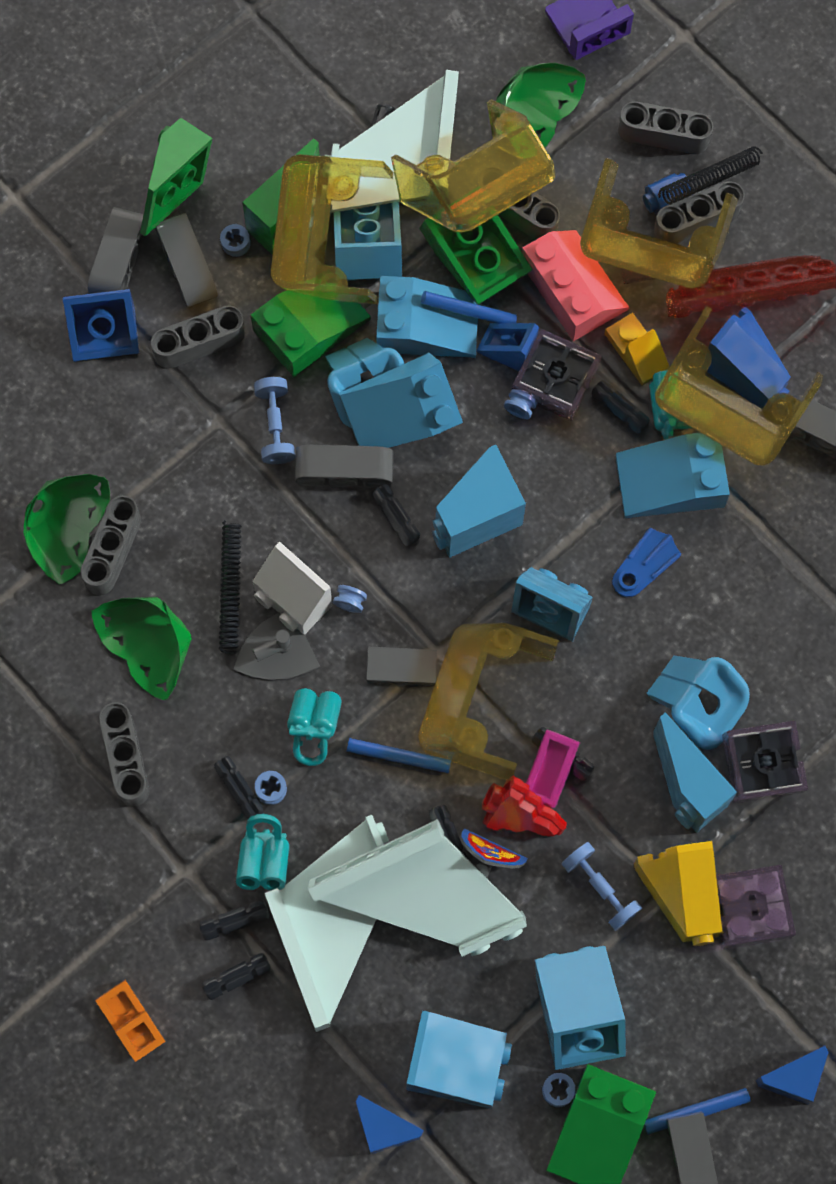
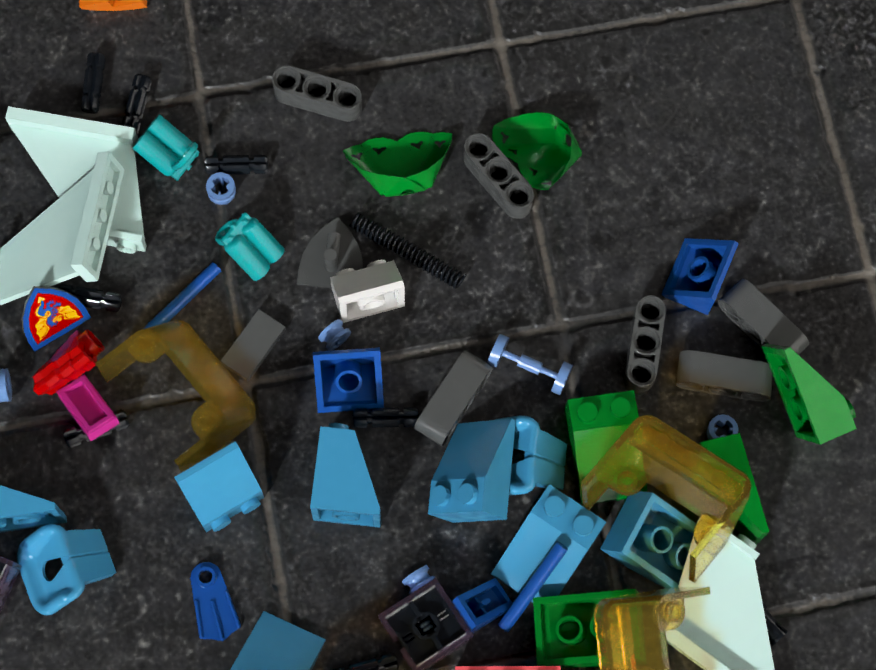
camera: 120 degrees right, 0 degrees up
(383, 562) = (348, 379): none -> blue slope

